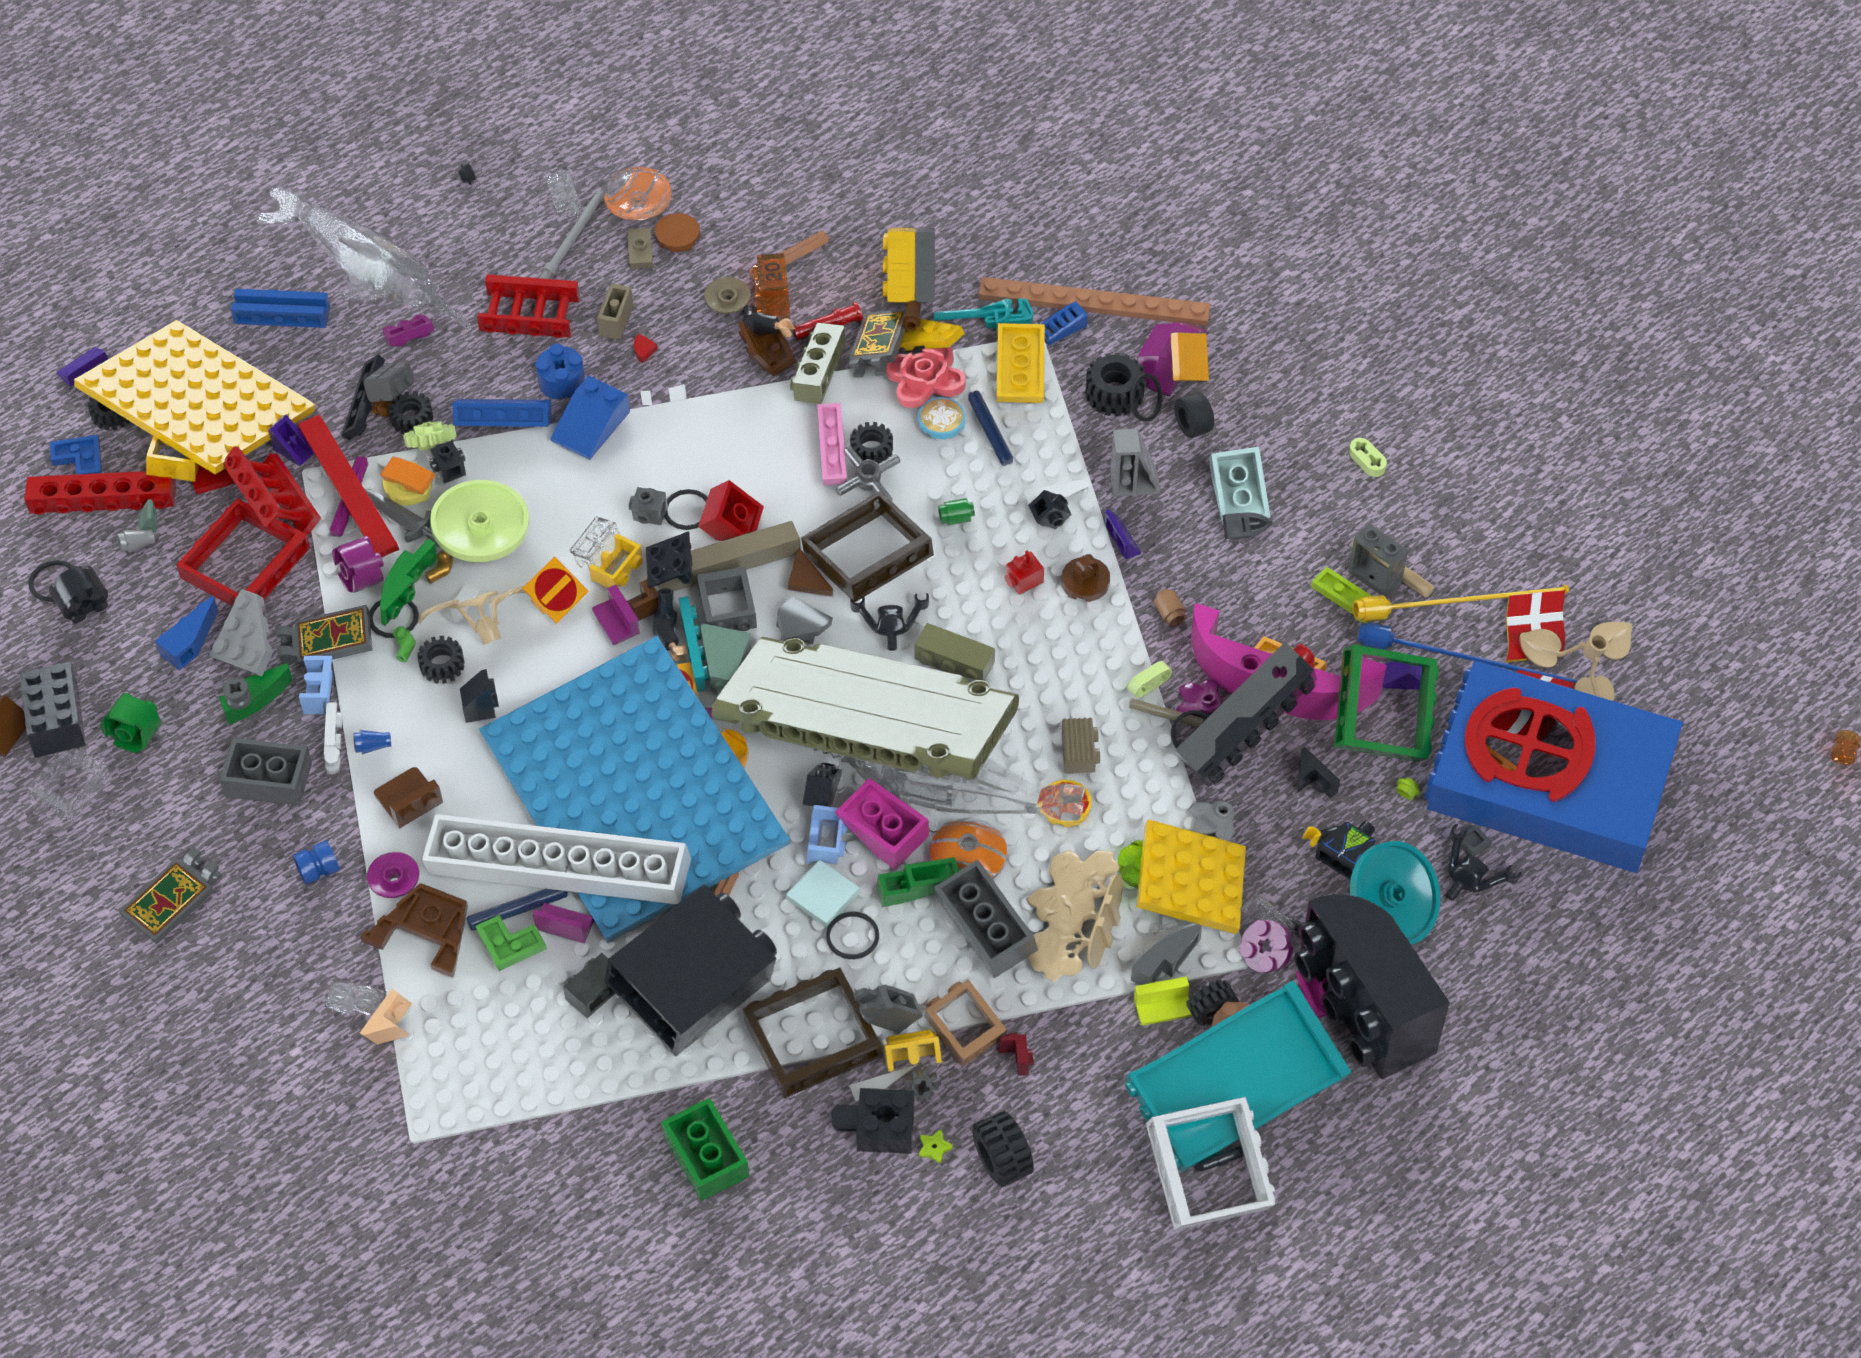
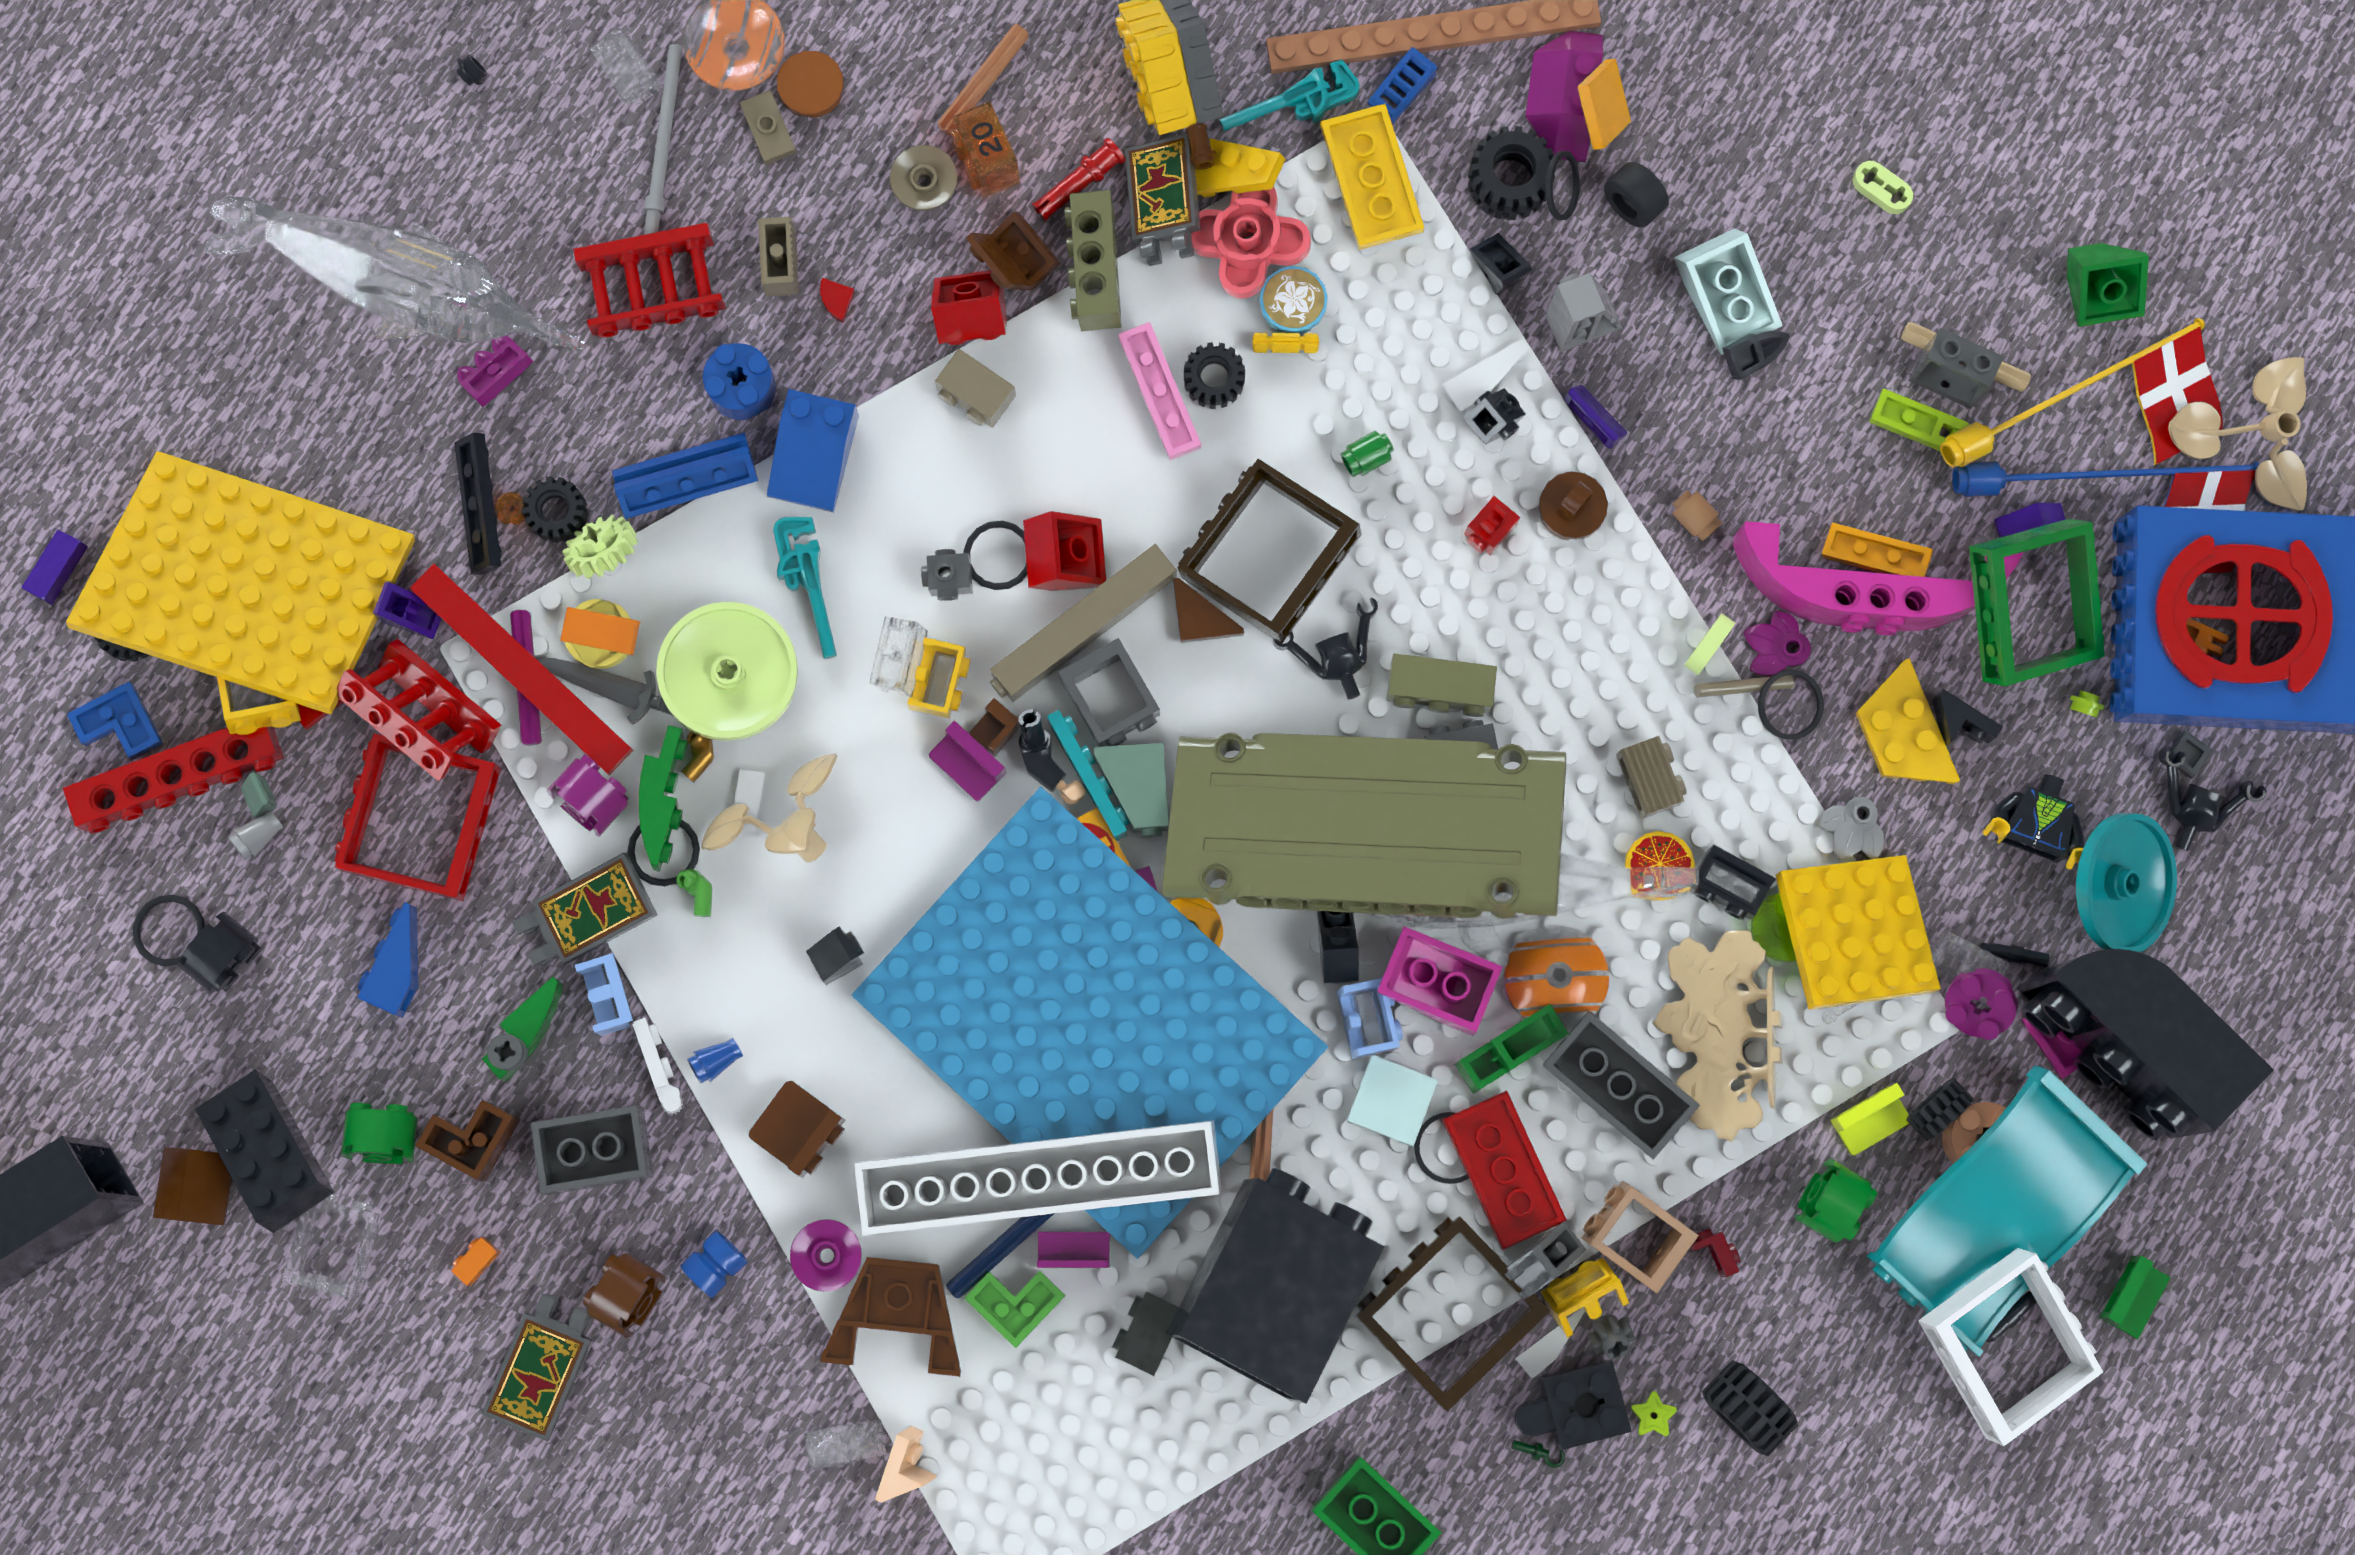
camera: 20 degrees left, 25 degrees up
(158, 820) = (475, 1261): none -> orange piece
(190, 747) = (475, 1147): none -> reddish brown brick
(244, 636) = (477, 954): light grey plate -> none
(247, 860) = (624, 1294): none -> reddish brown brick
(280, 308) = (298, 387): blue brick -> none
(389, 381) = (508, 475): dark grey brick -> none
(437, 648) = (751, 882): black tyre -> none
(447, 461) = (646, 595): black brick -> none
(555, 590) = (872, 748): piece -> none
(556, 481) = (802, 568): none -> teal piece
(670, 560) = (1016, 666): black hinge -> none
(676, 393) = (909, 360): white sticker -> none
(710, 411) = (974, 389): none -> dark tan brick
(725, 370) = (968, 308): none -> red slope
(766, 324) = (992, 219): black arm -> none
(801, 621) = (1218, 693): dark grey slope -> none
(840, 1146) = (1537, 1451): none -> dark green hand
(867, 467) = (1237, 419): flat silver bar -> none
(884, 948) = (1504, 1170): none -> red tile
(926, 439) = (1285, 342): none -> yellow axle
(990, 428) = (1365, 297): dark blue axle -> none
(1090, 435) = (1500, 262): none -> black slope
(1112, 822) = (1732, 883): none -> black window
(1114, 1038) = (1835, 1202): none -> green brick
(1166, 955) = (1861, 1061): dark grey slope -> none
(1249, 713) = (1870, 679): piece -> none
(1272, 773) = (1905, 731): none -> yellow wing
(1318, 1170) = (2135, 1296): none -> green panel
(1505, 547) = (2107, 283): none -> green slope

